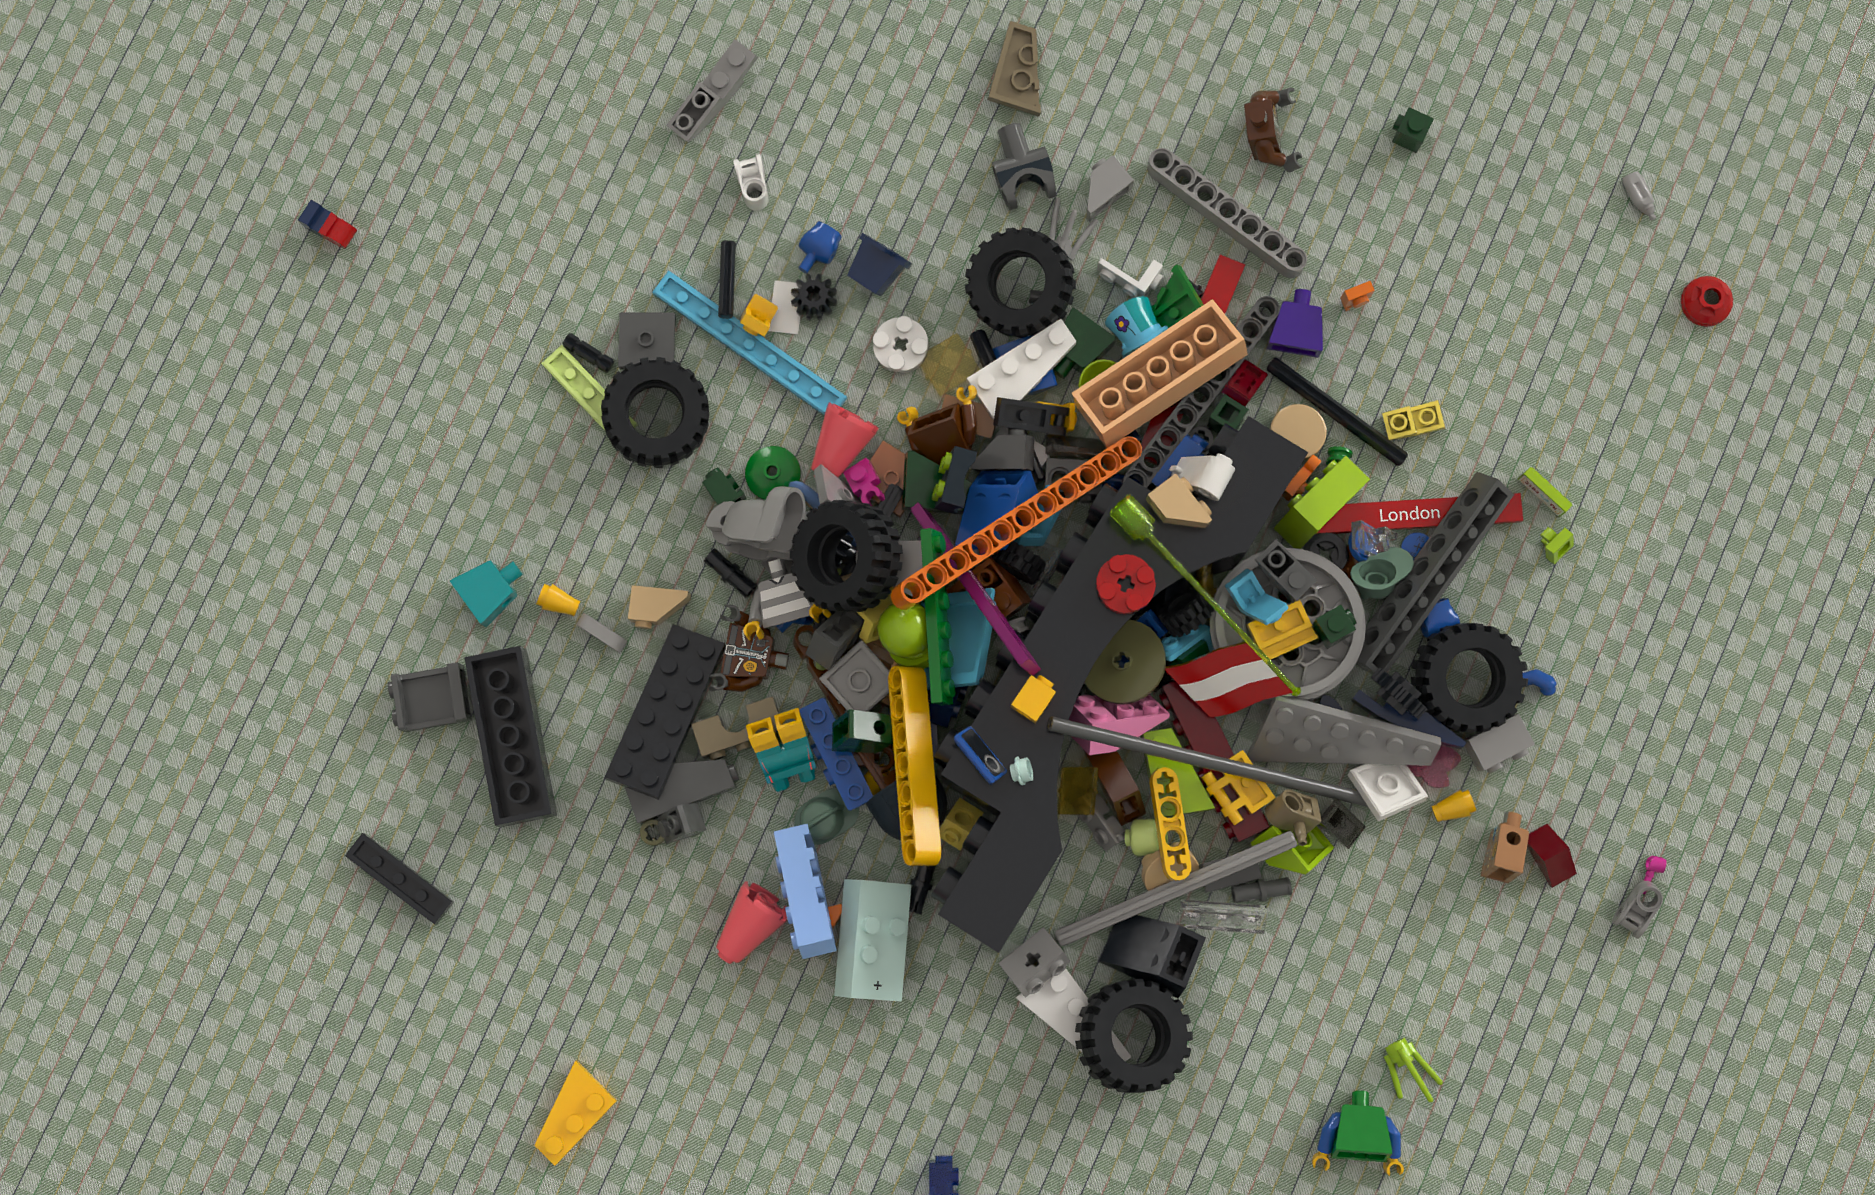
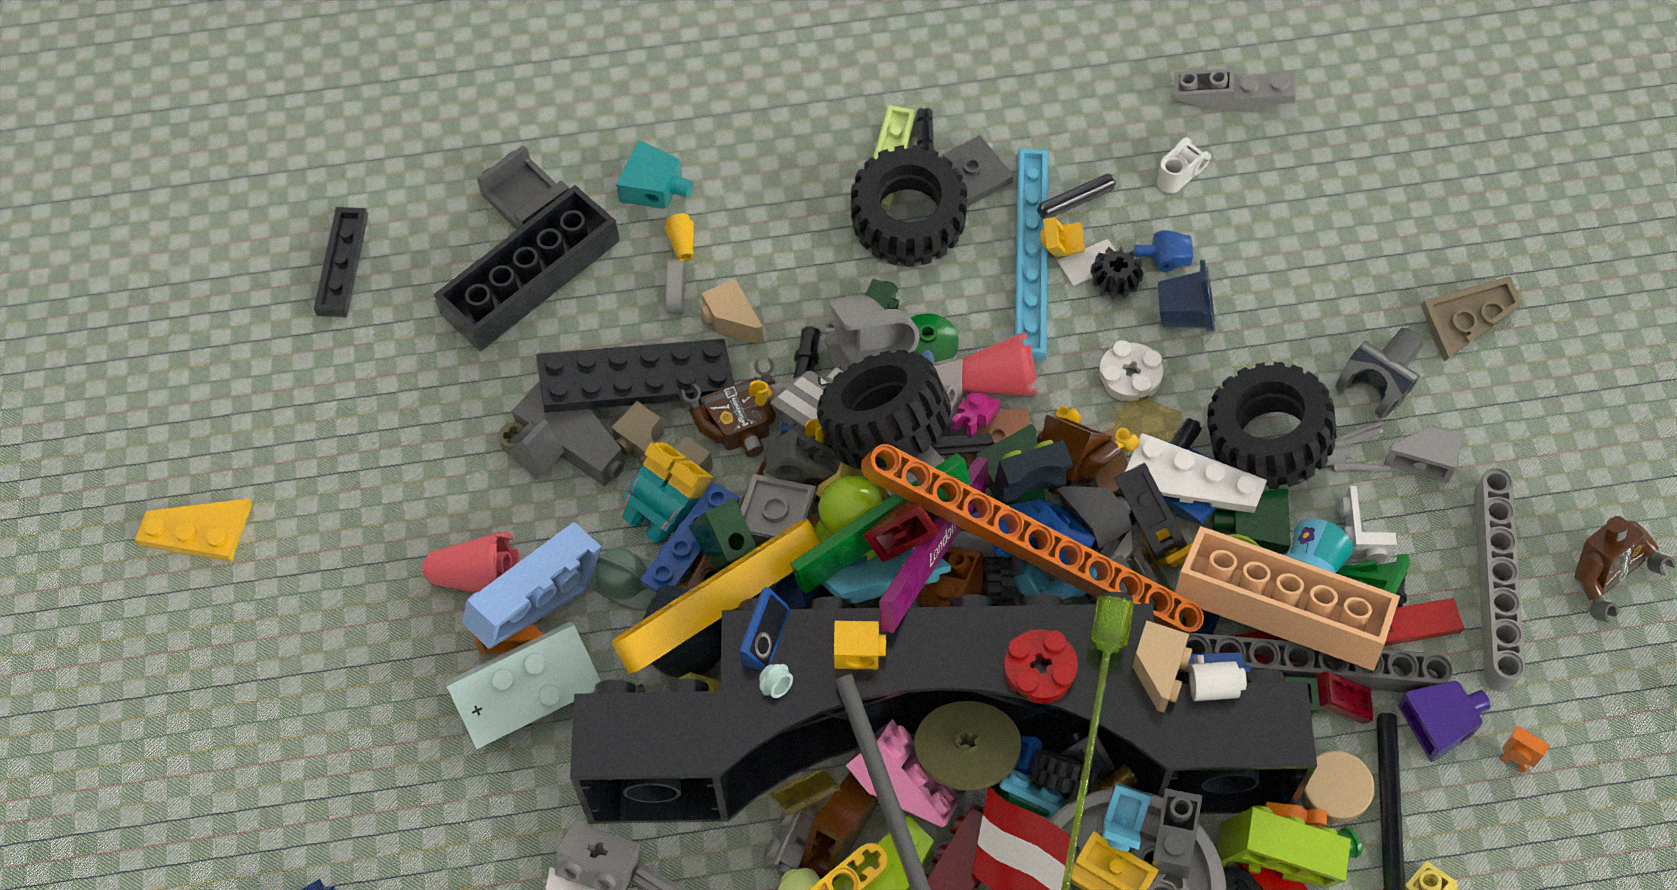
camera: 55 degrees right, 20 degrees down
(959, 610) = (900, 530): none -> dark red slope

